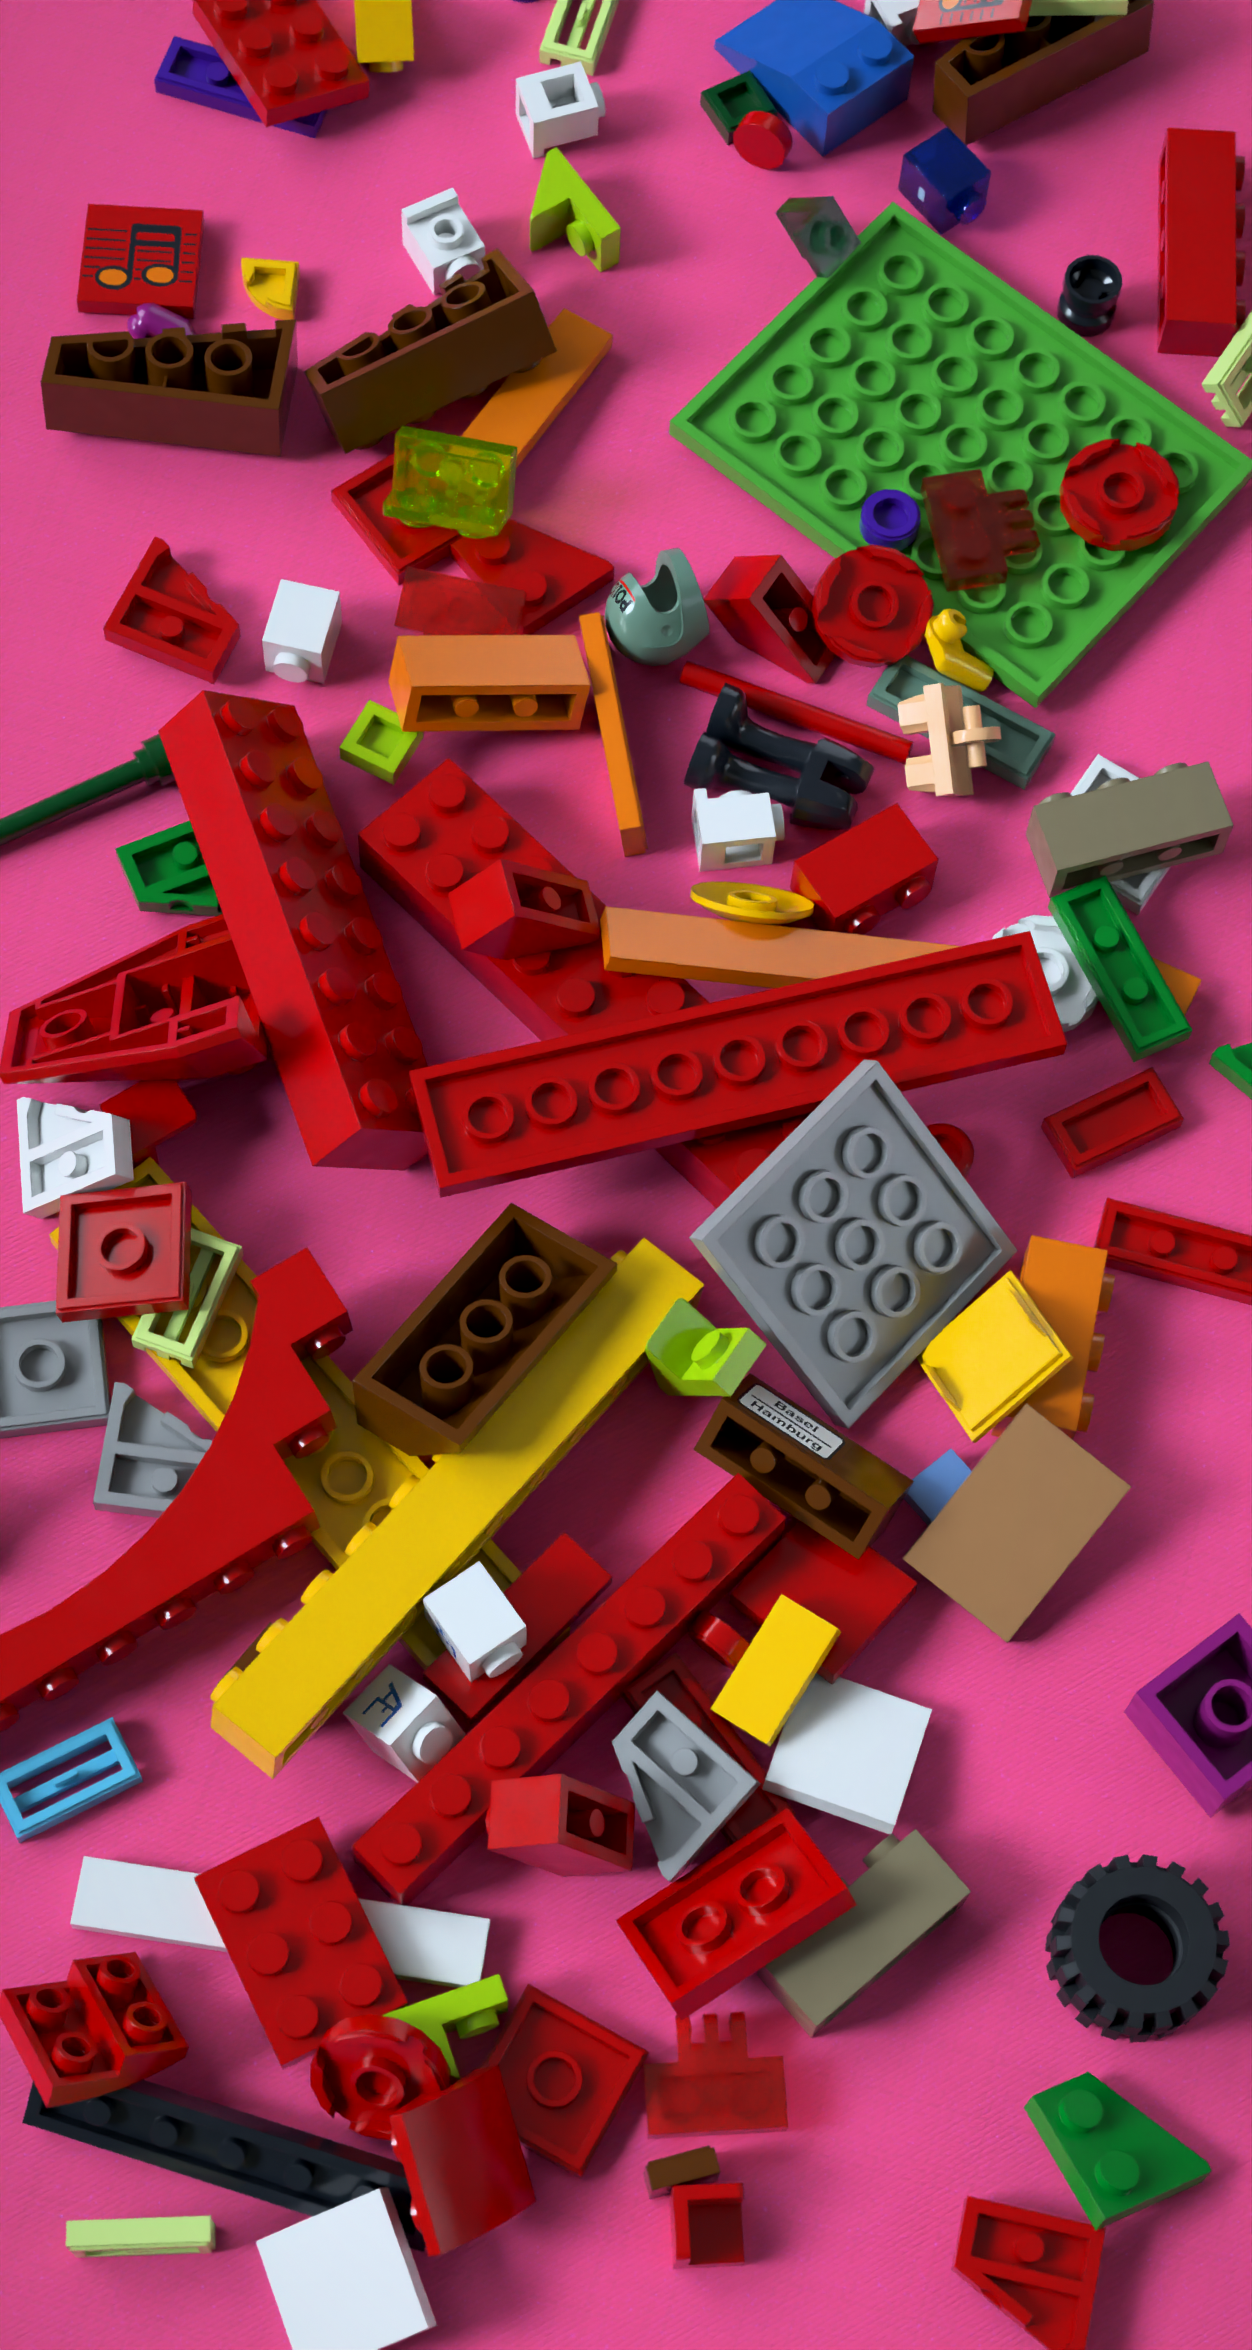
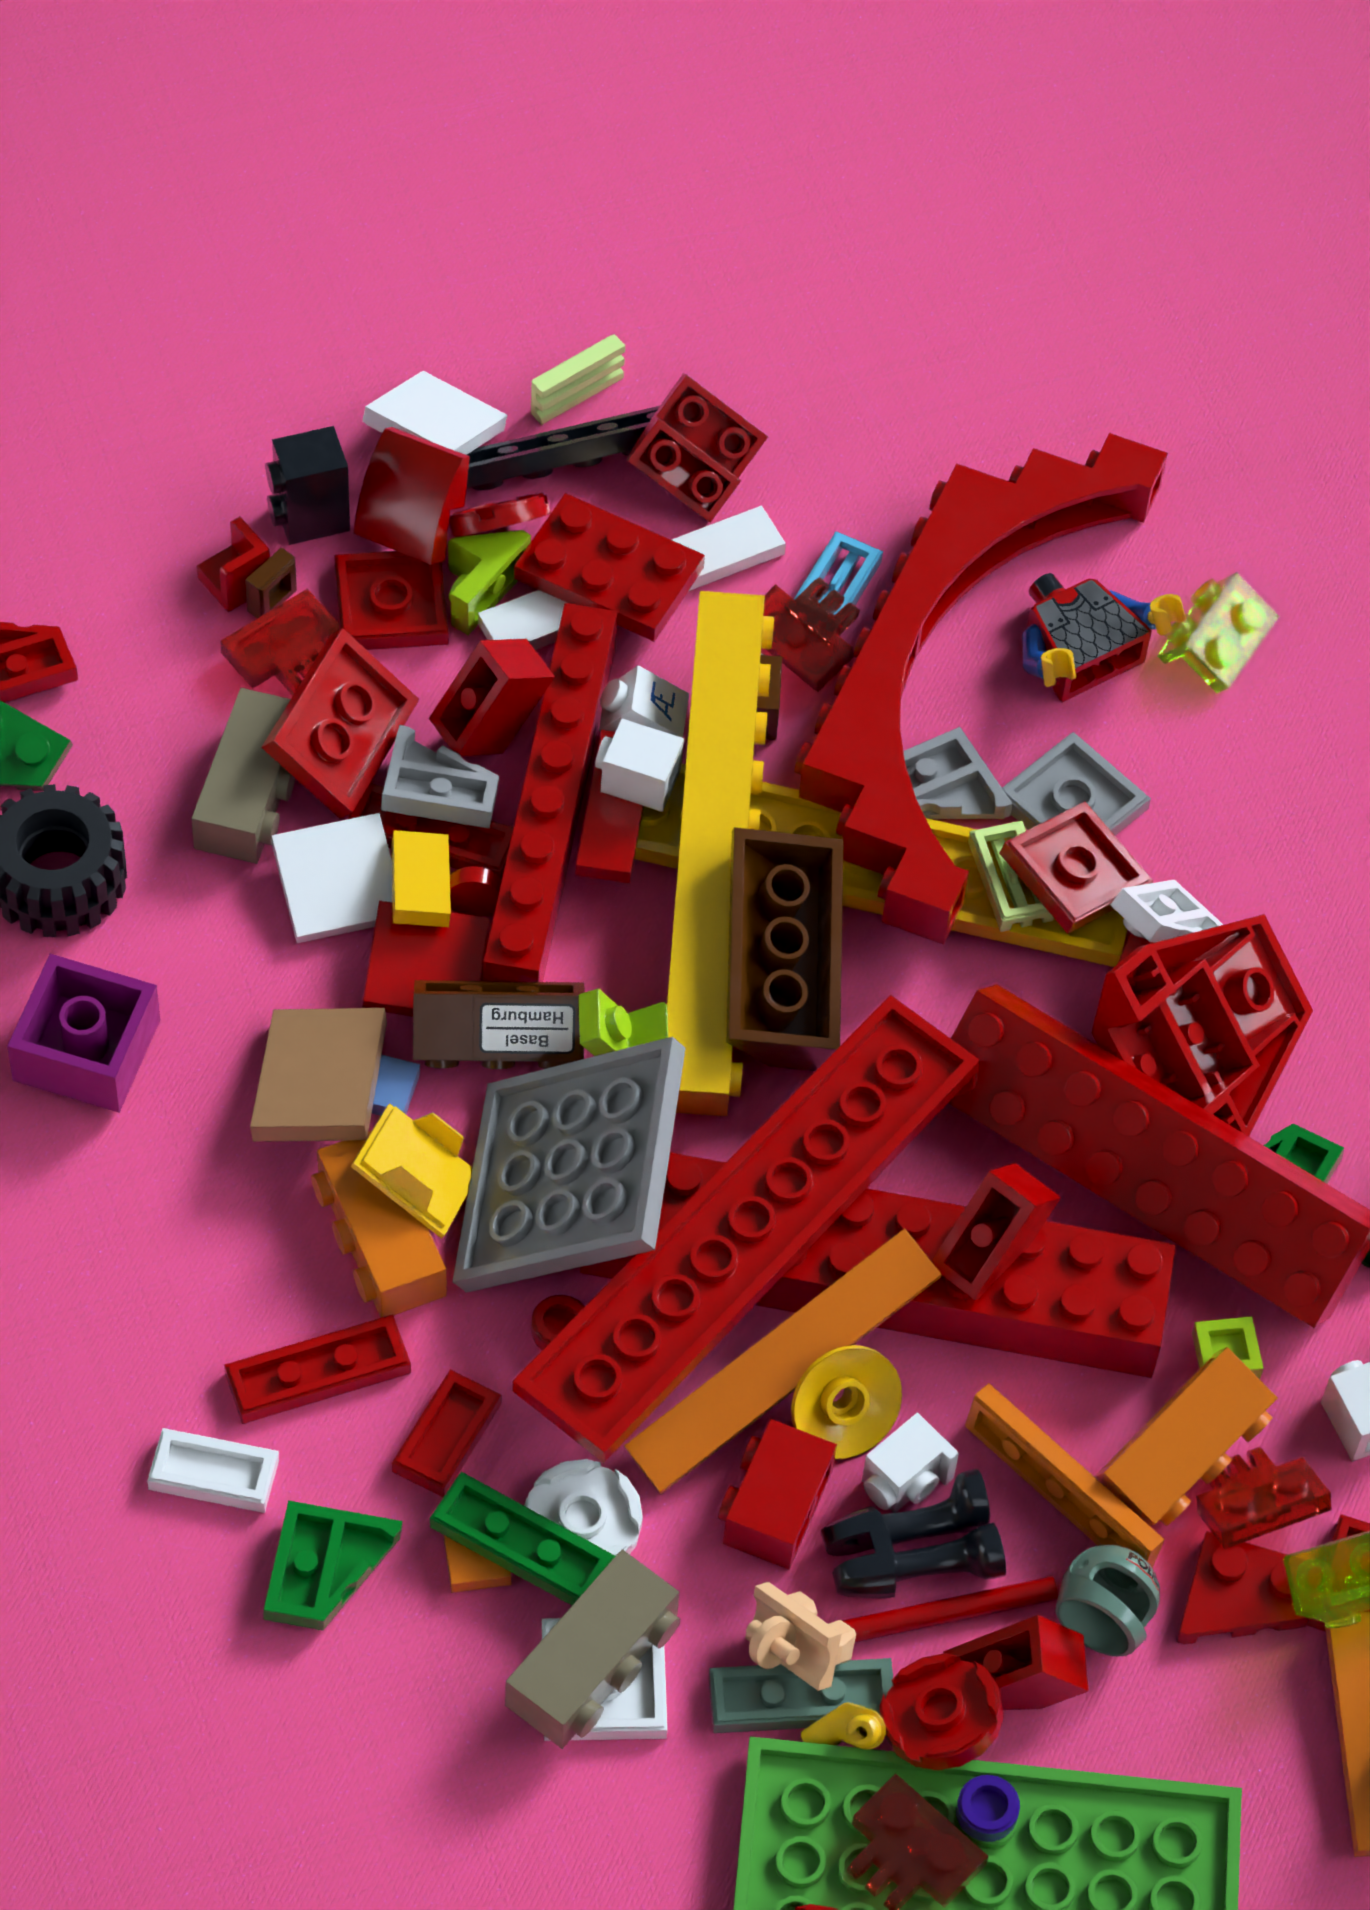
camera: 145 degrees right, 10 degrees down
(156, 1726) = (809, 632): none -> clear red hinge
(566, 2257) = (309, 485): none -> black brick

